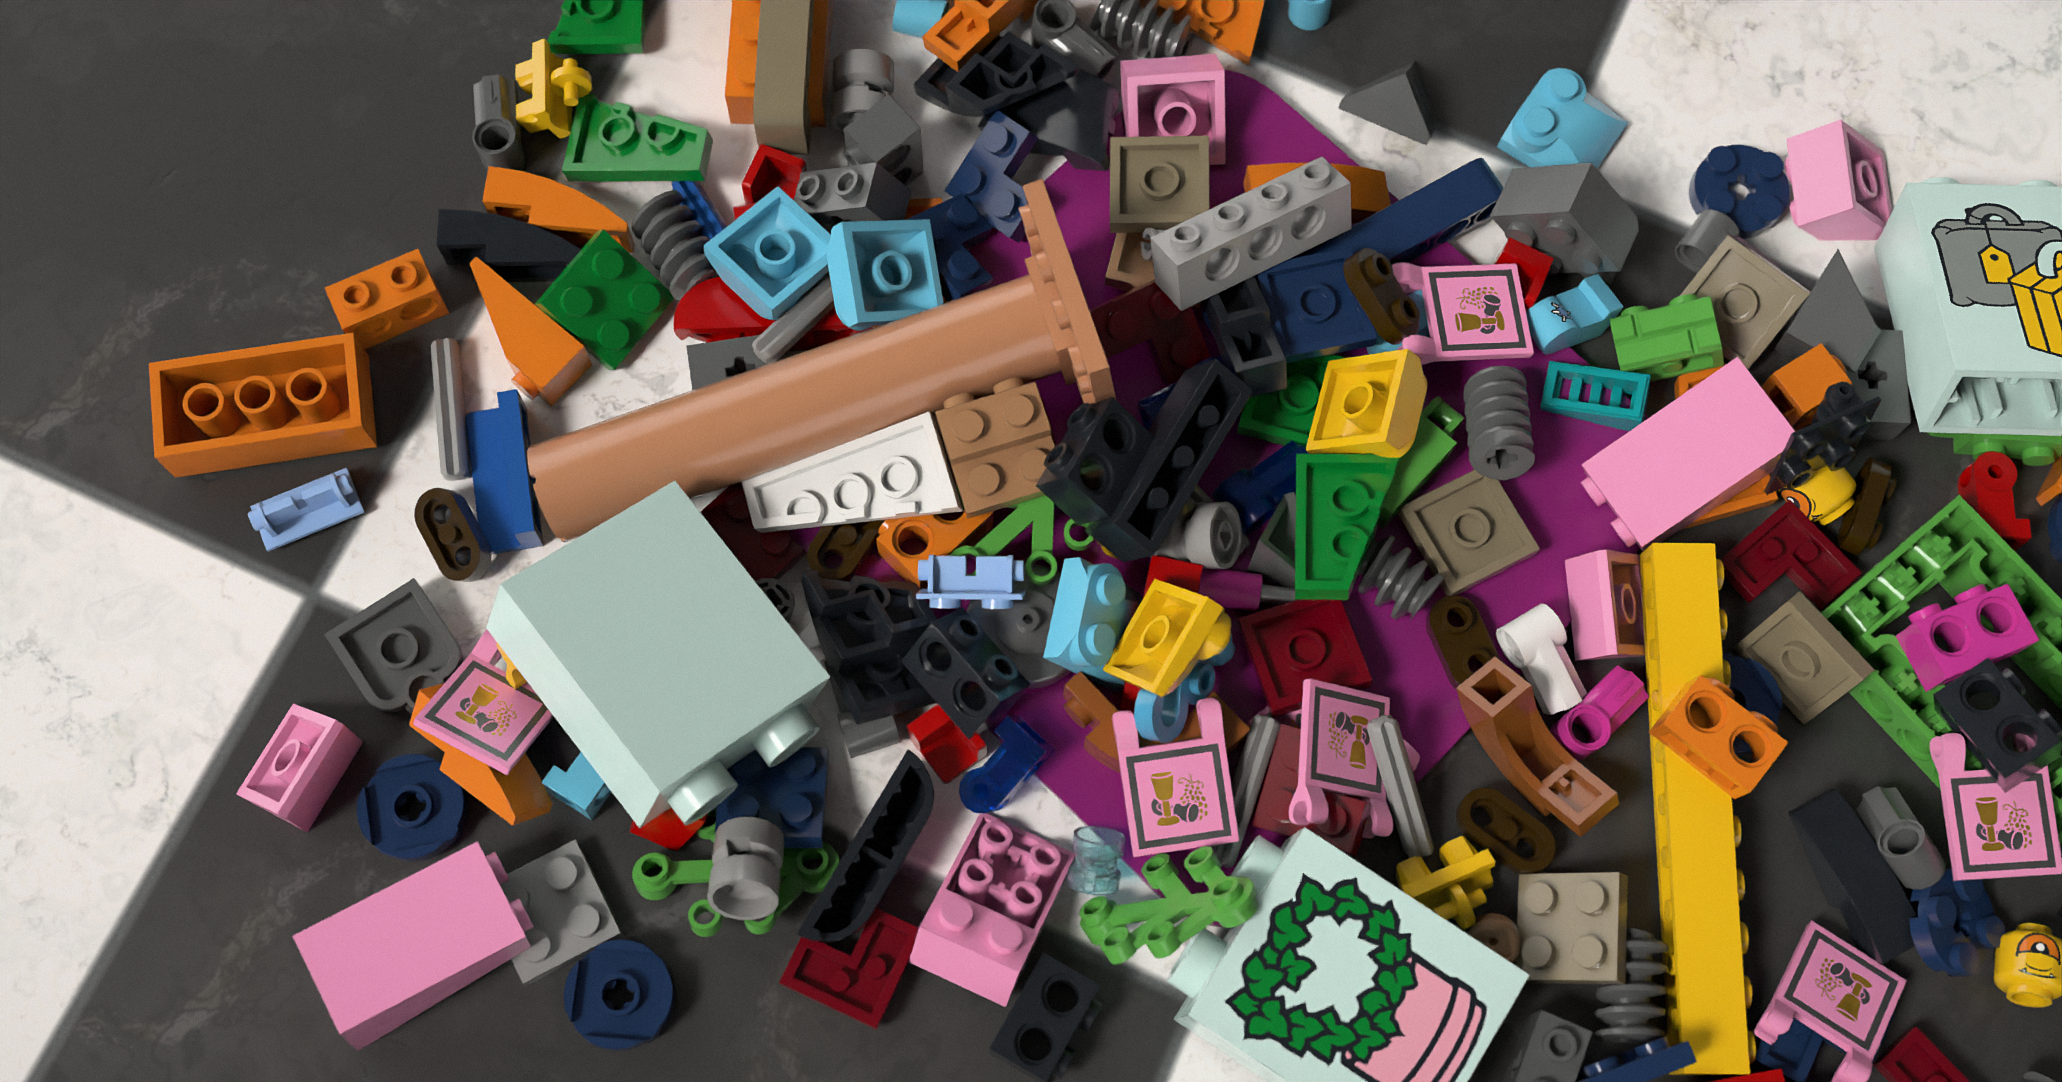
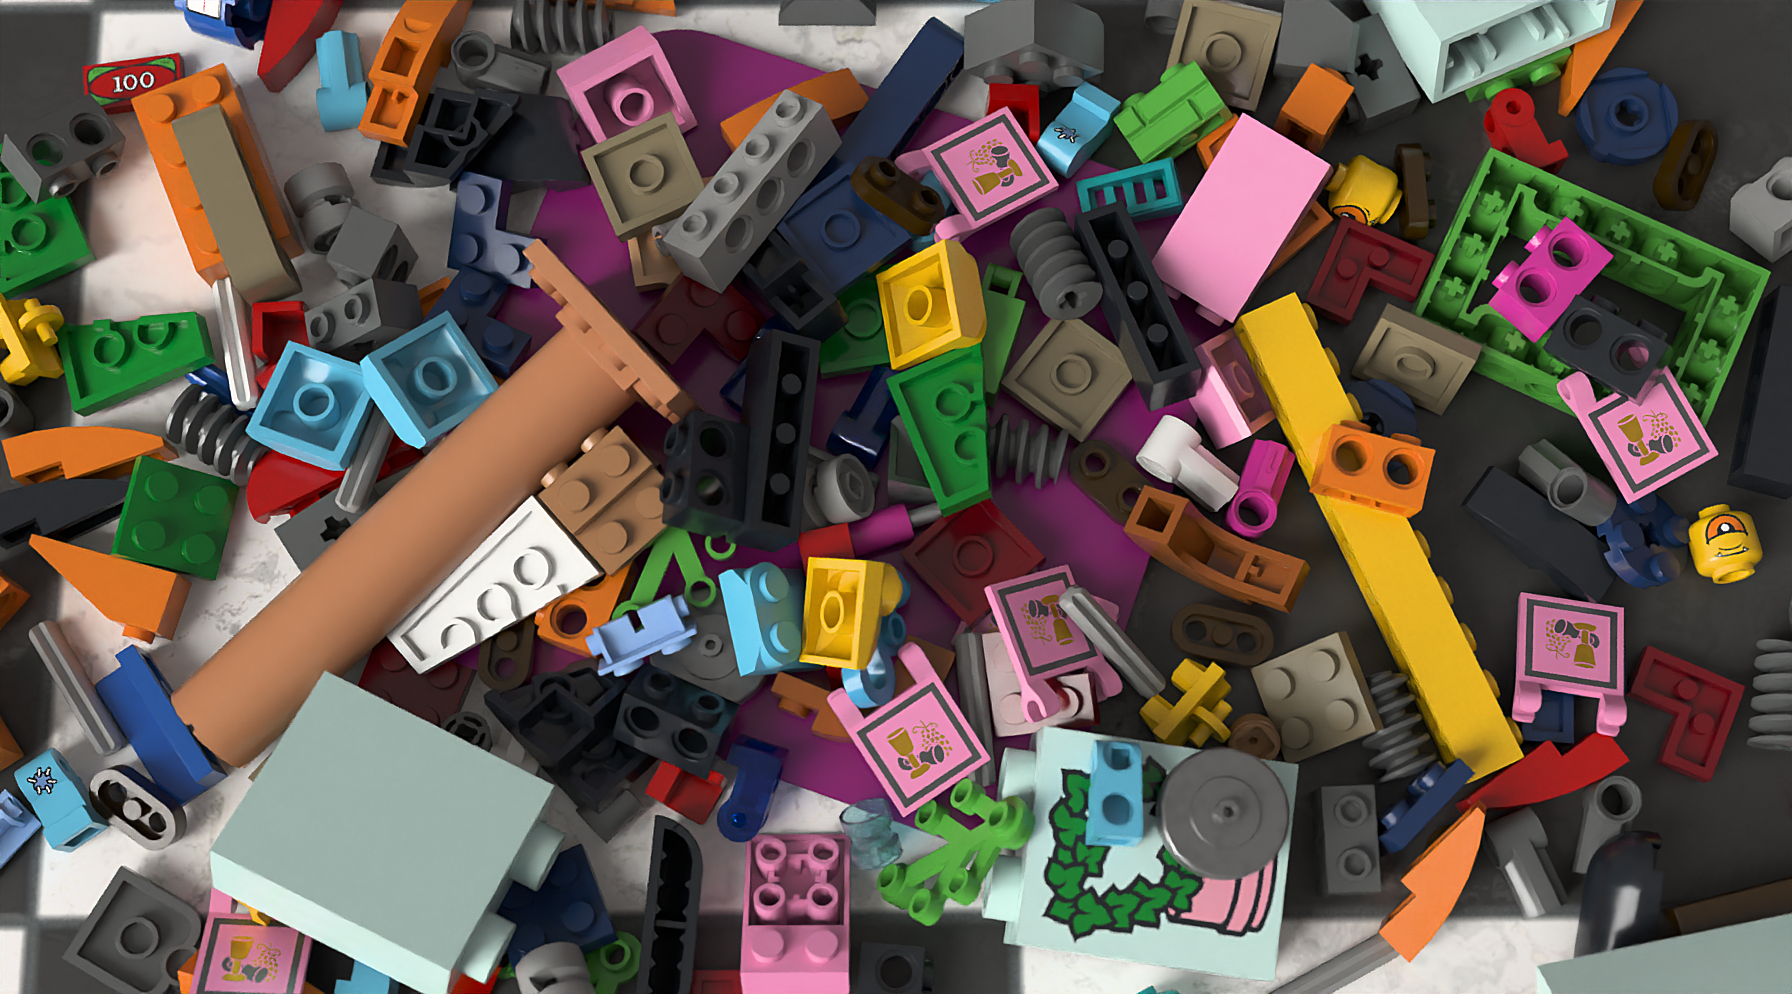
camera: 20 degrees left, 5 degrees up
(388, 499) = (60, 801): none -> medium azure leg
(730, 174) = (237, 344): none -> white axle
(1343, 919) = (1115, 794): none -> medium azure leg
(1438, 984) = (1222, 813): none -> flat silver wheel
(1560, 494) = (1138, 307): none -> black brick
(1827, 441) = (1356, 150): black hinge -> none

